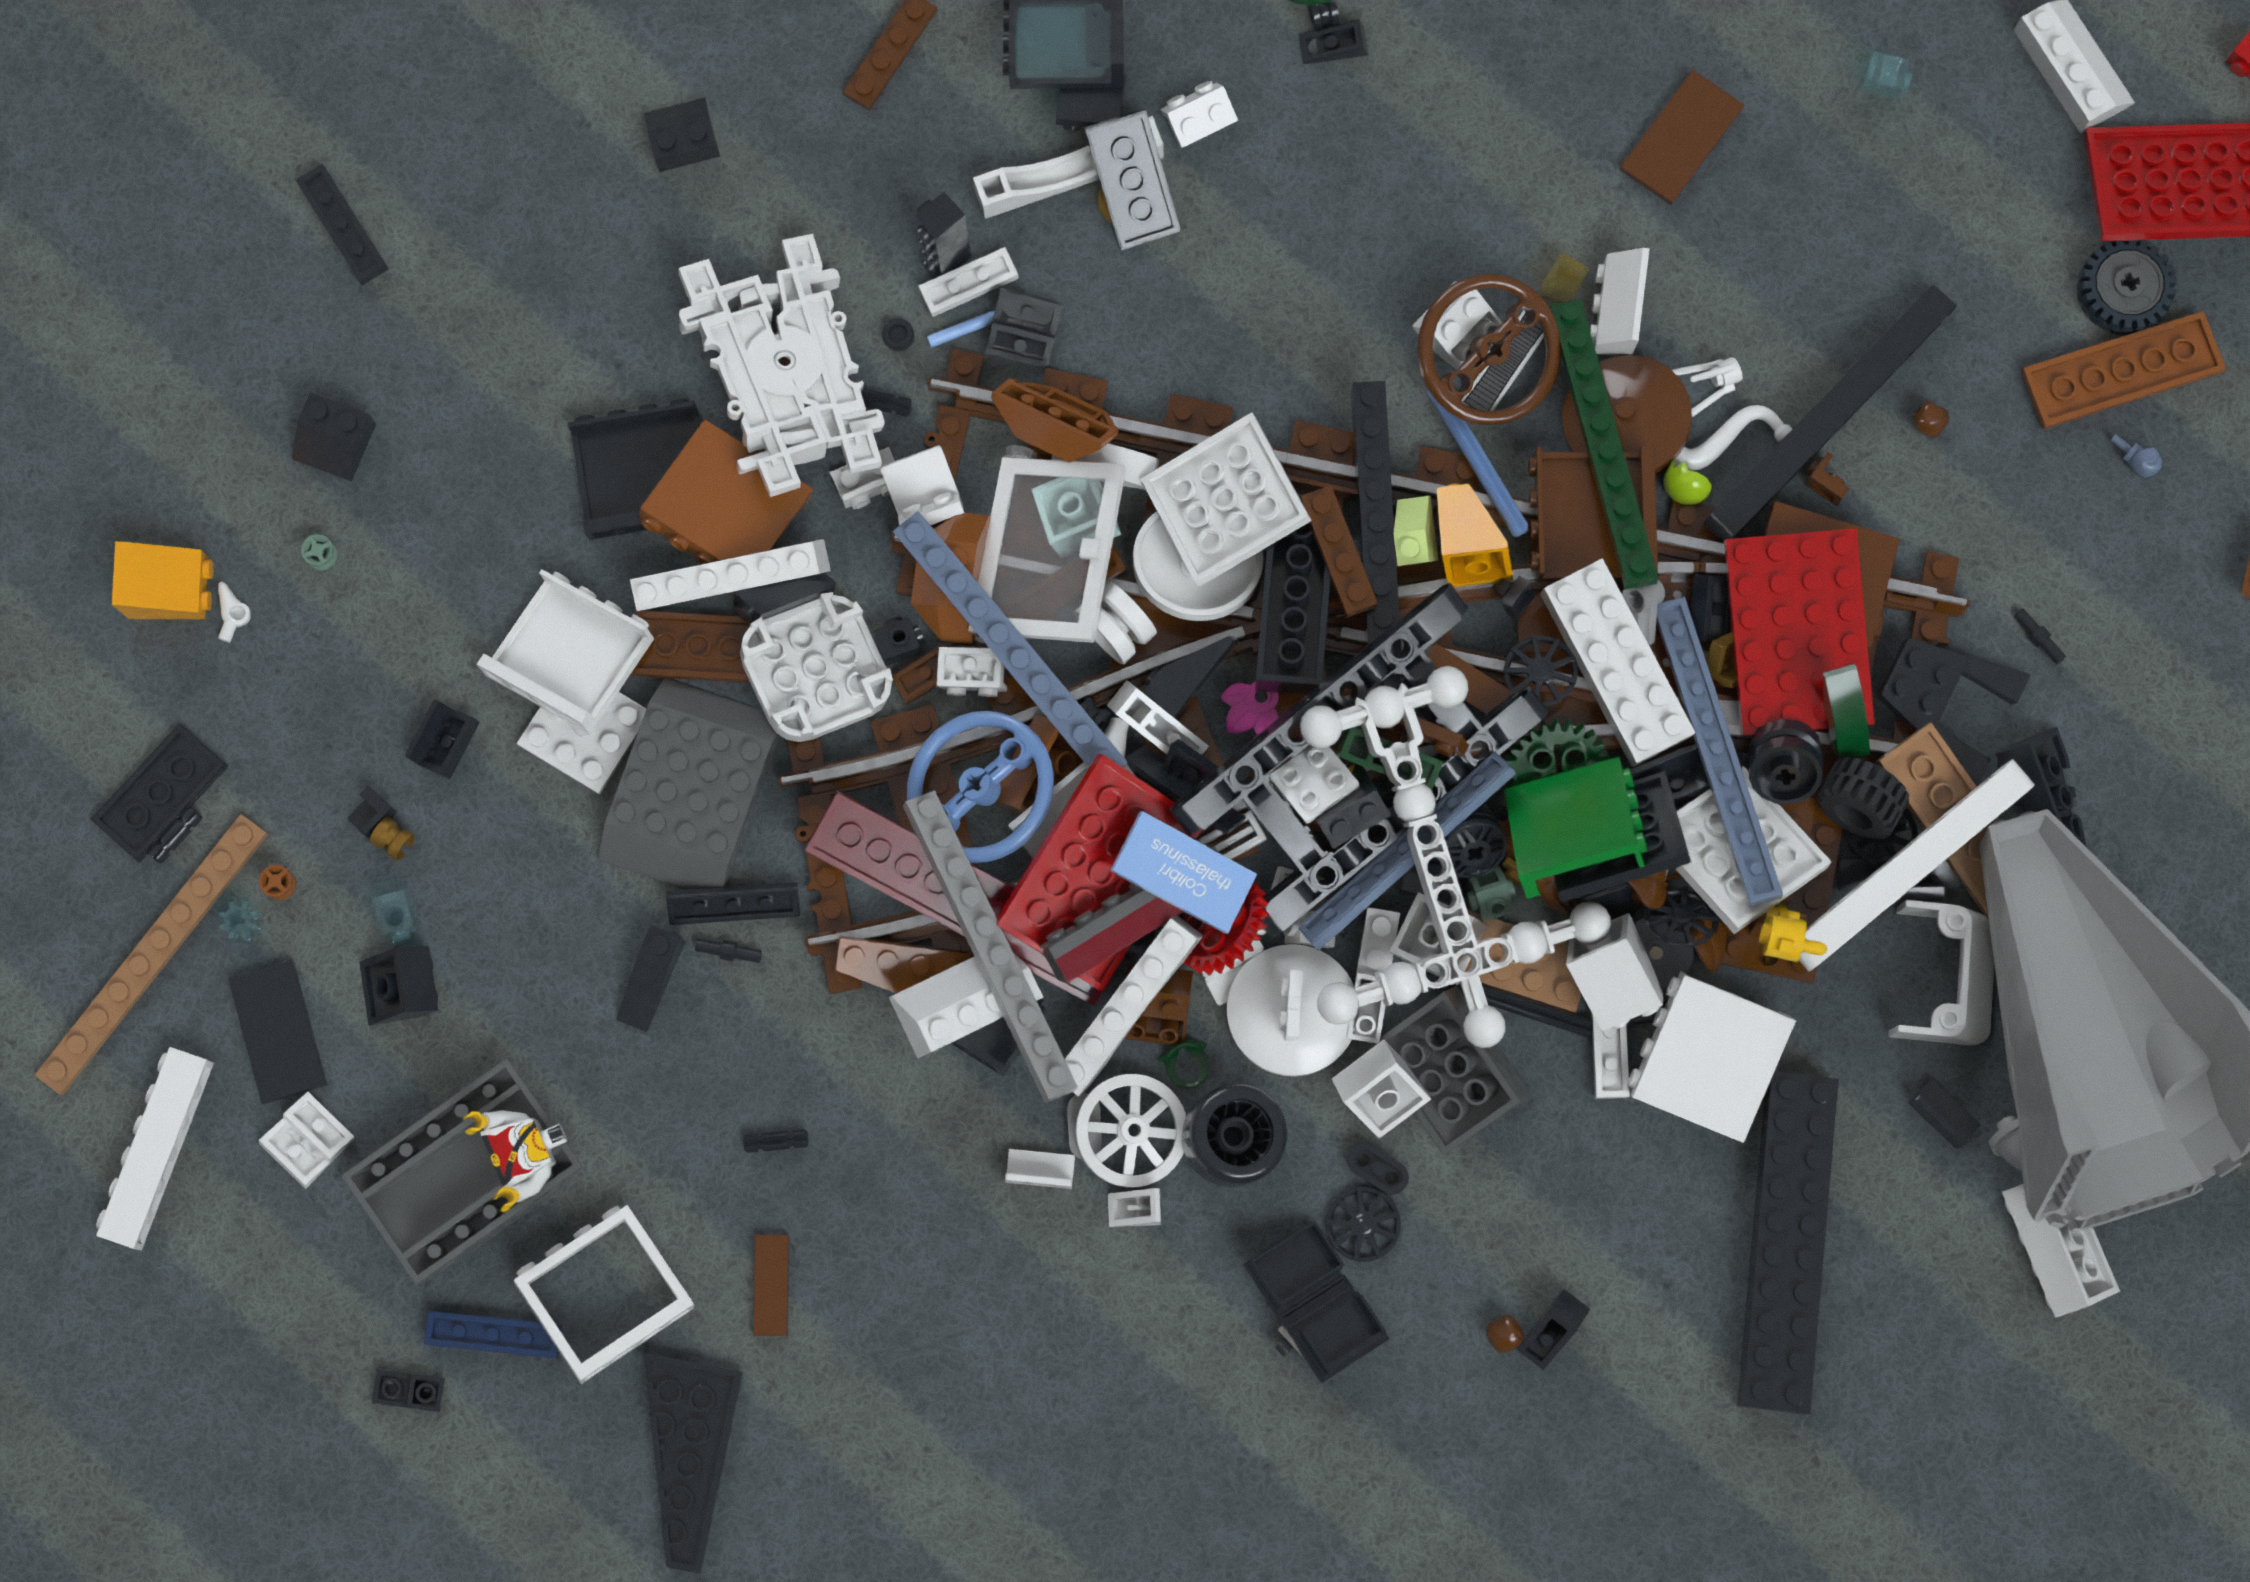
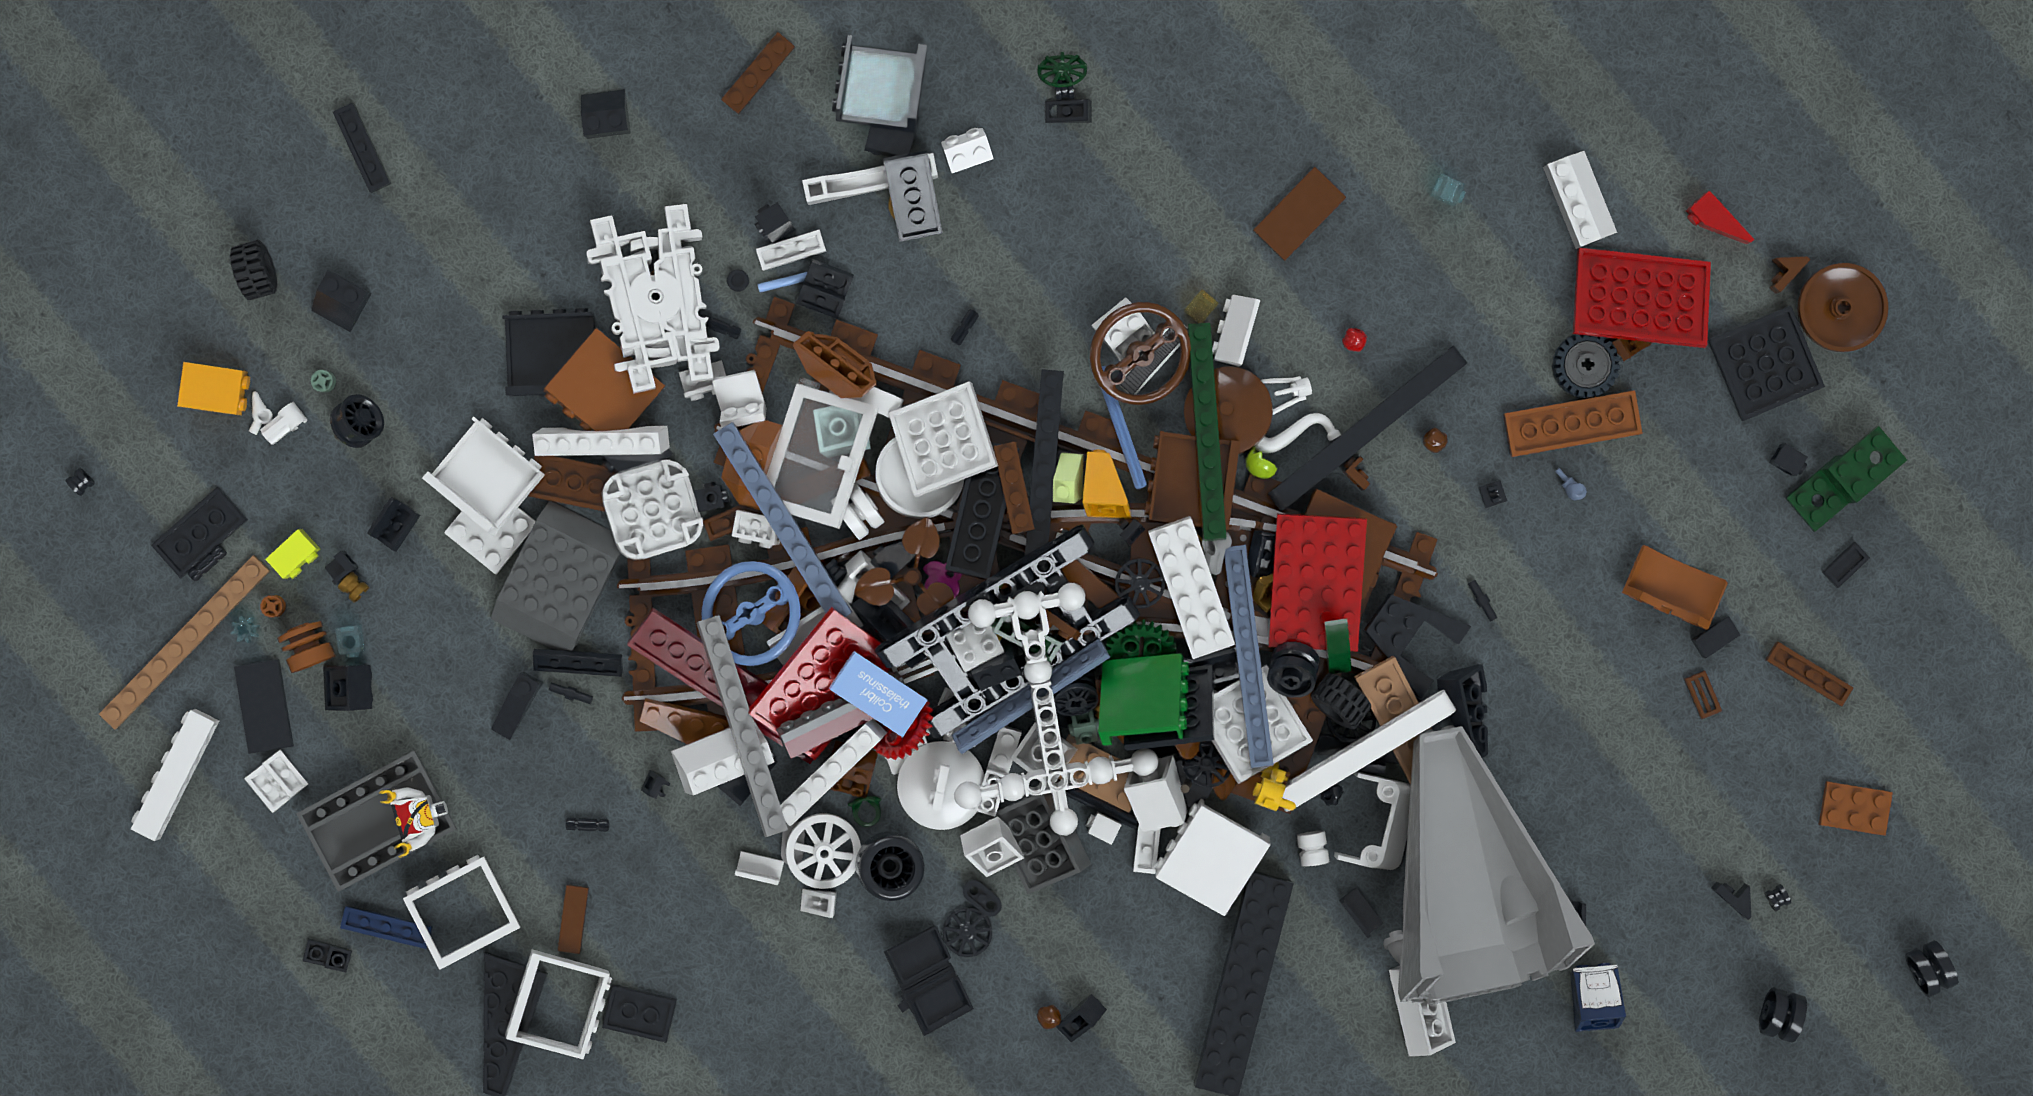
camera: 10 degrees right, 10 degrees up
(204, 405) = (253, 270): none -> black tyre
(273, 614) = (286, 421): none -> white piece
(300, 803) = (293, 554): none -> neon yellow brick
(331, 928) = (306, 646): none -> dark orange wheel
(373, 597) = (356, 421): none -> black wheel
(817, 1436) = (591, 1022): none -> white window
(867, 1065) = (653, 784): none -> black tile
(888, 1414) = (639, 1013): none -> black tile
(1159, 721) = (918, 539): none -> reddish brown plant
(1228, 360) = (962, 331): none -> black piece
(1541, 1038) = (1103, 827): none -> white brick
(1790, 296) = (1354, 339): none -> red piece
(1857, 1026) = (1313, 848): none -> white wheel
(1869, 943) = (1332, 795): none -> black piece
(2026, 484) = (1493, 494): none -> black tile
(2185, 251) = (1629, 348): none -> reddish brown bracket

